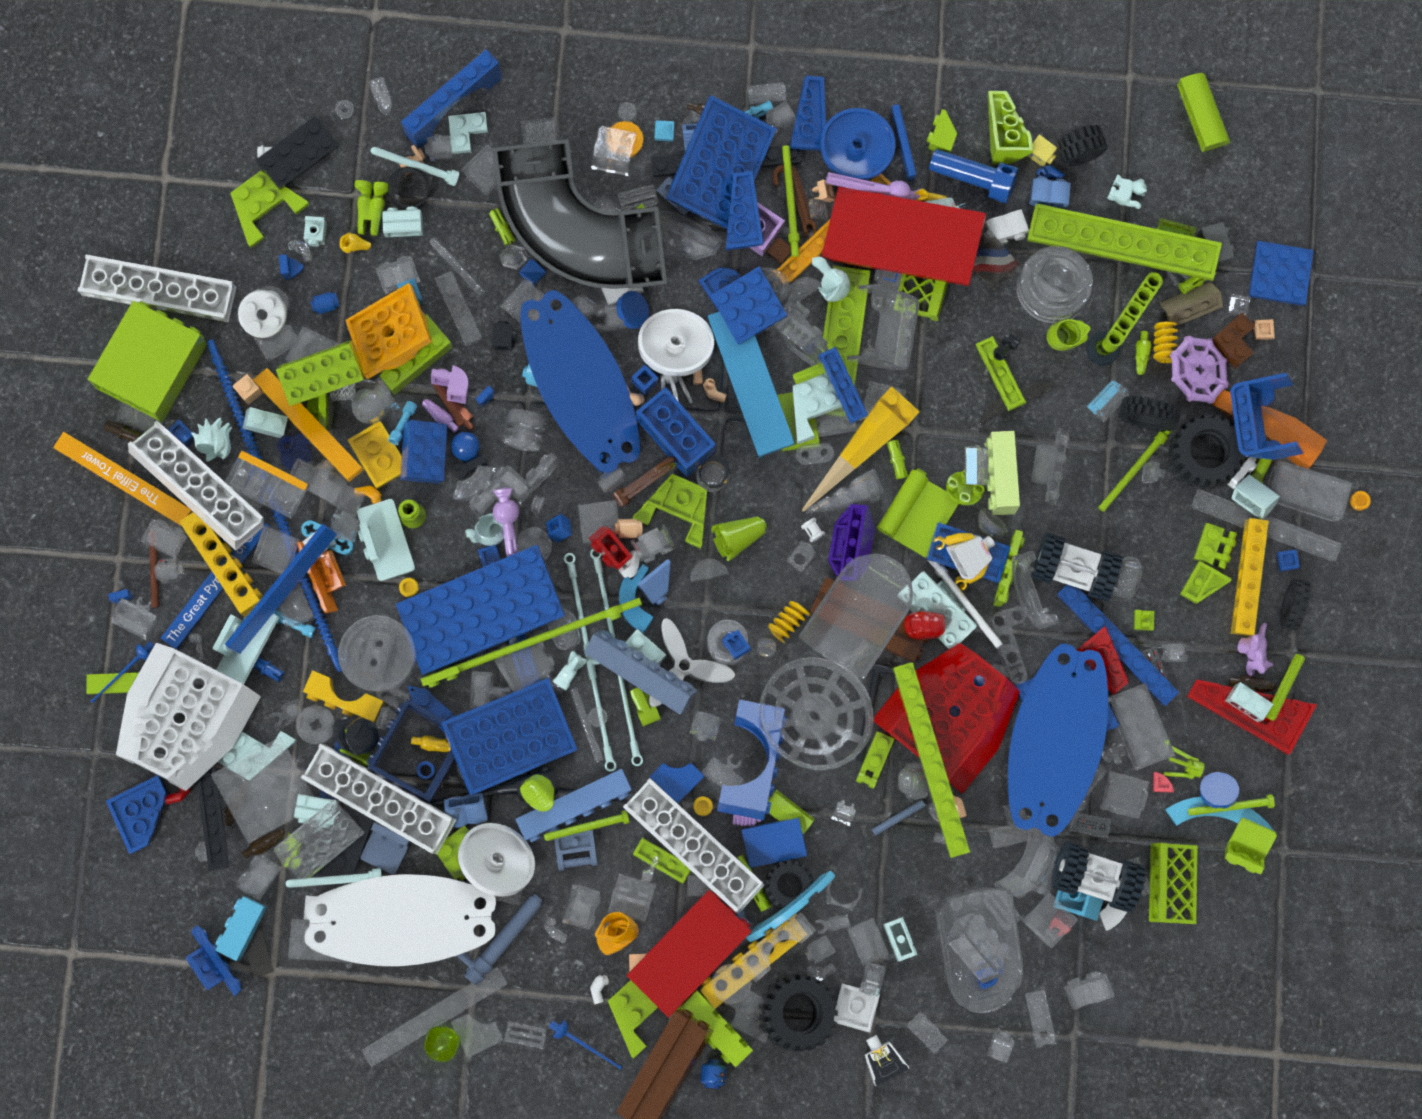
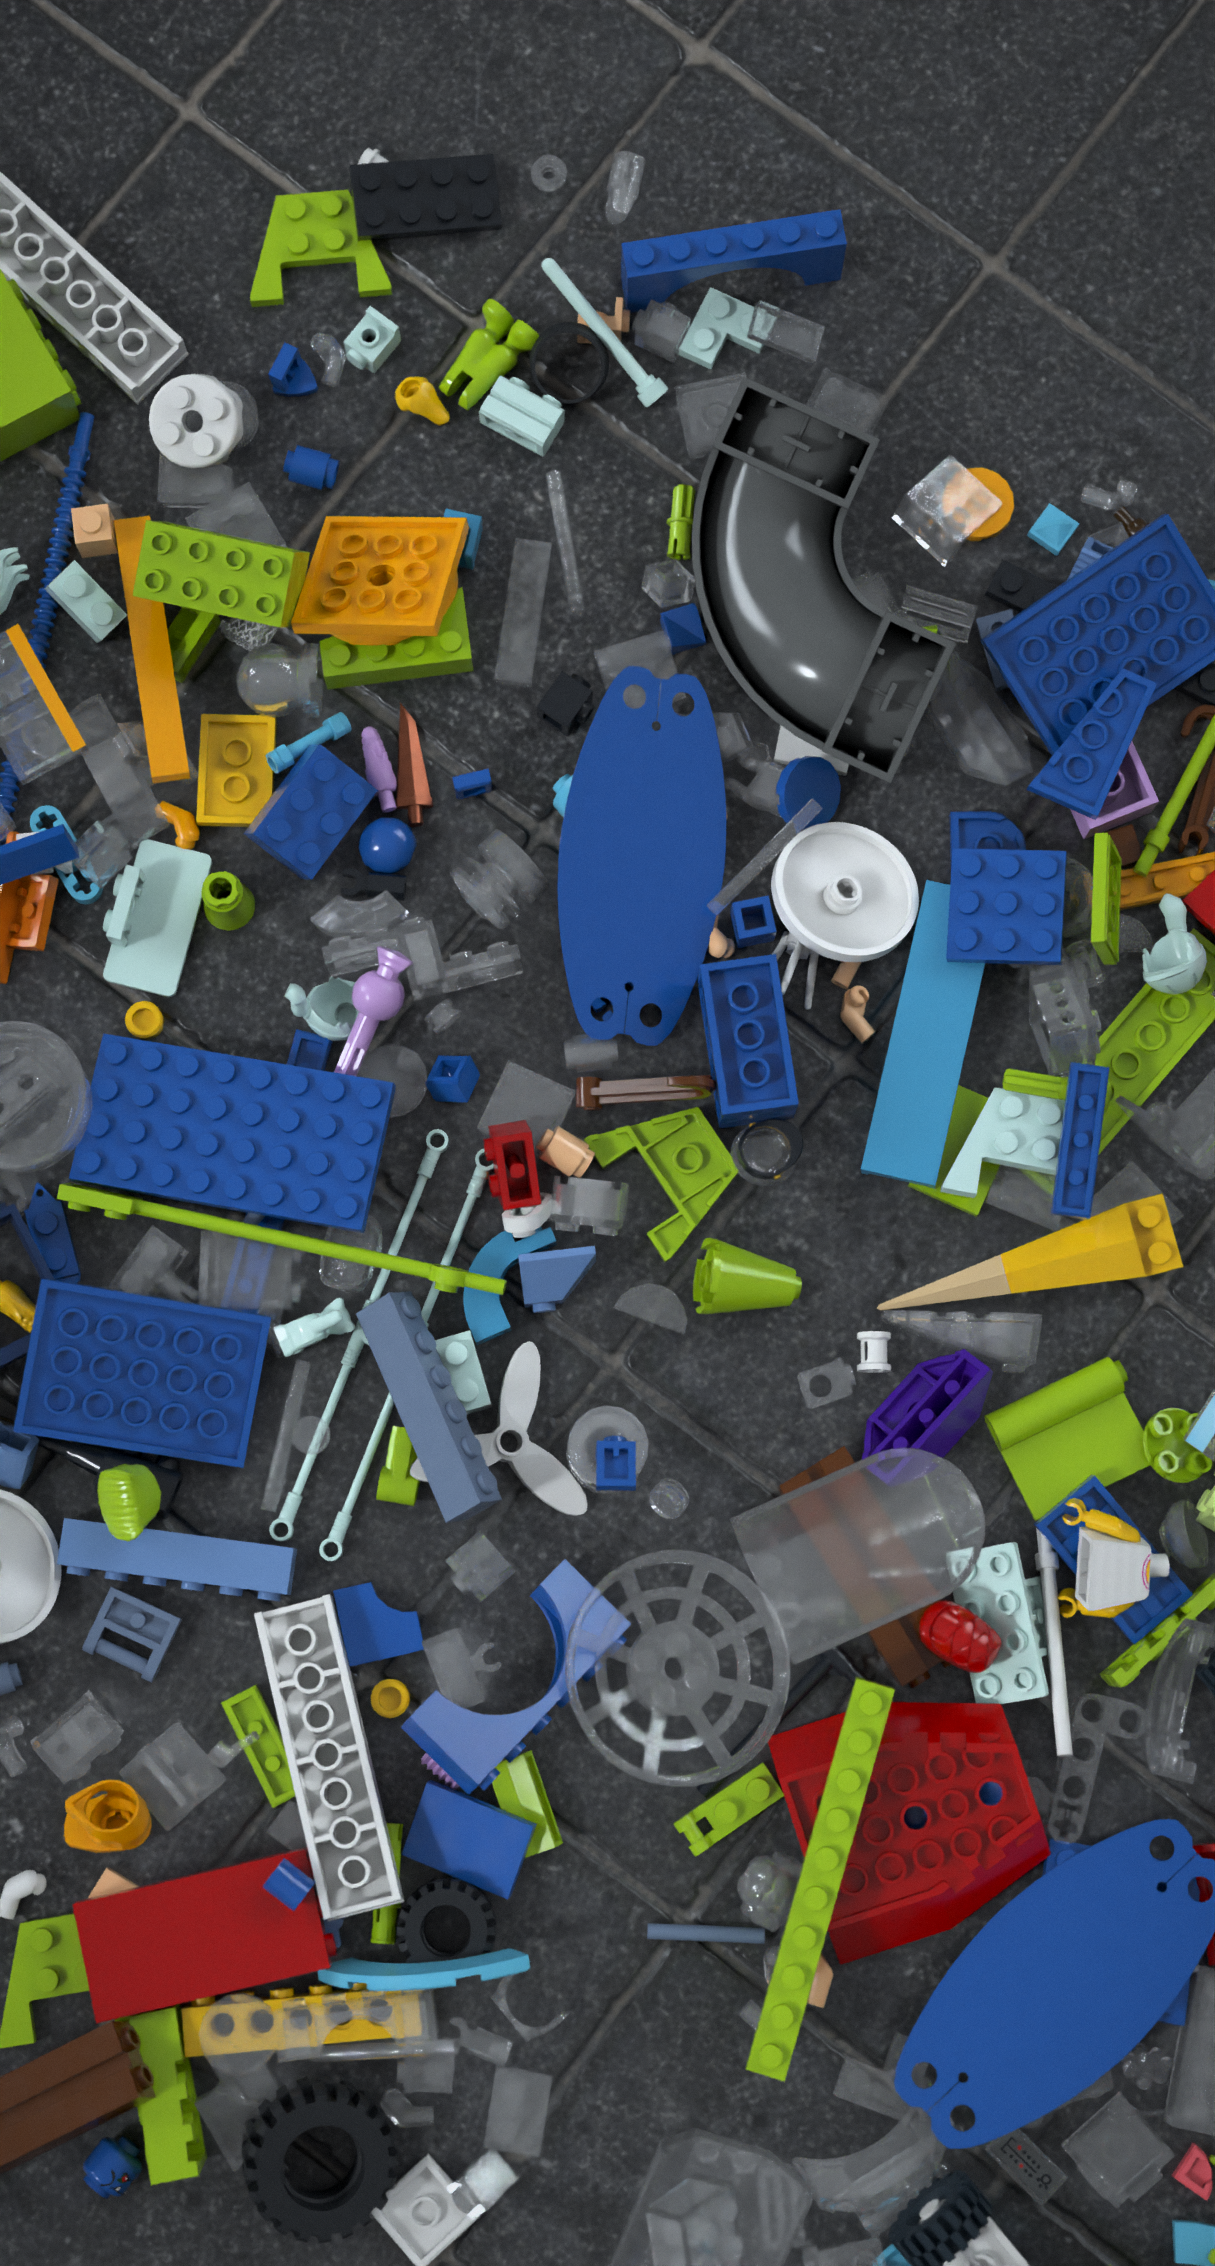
camera: 35 degrees right, 0 degrees up
(297, 450) = (110, 681): clear blue plate -> none
(396, 272) = (459, 490): clear brick -> none
(455, 381) = (438, 732): lavender brick -> none
(494, 115) = (785, 332): none -> clear tile
(623, 817) = (176, 1608): lime bar -> none
(627, 112) = (1011, 461): clear tile -> none
(632, 349) = (764, 857): none -> clear bar
(681, 102) = (1110, 499): none -> clear arm
(712, 907) = (288, 1884): none -> blue beam
(787, 620) = (733, 1478): yellow piece -> none
(789, 276) = (1106, 899): none -> lime tile
(797, 950) = (387, 2050): none -> clear bar
(814, 453) = (958, 1226): clear plate -> none
(844, 813) = (617, 1866): clear tile -> none
(897, 459) = (1093, 1323): lime pin -> none
(900, 939) = (573, 2146): light aqua brick -> none

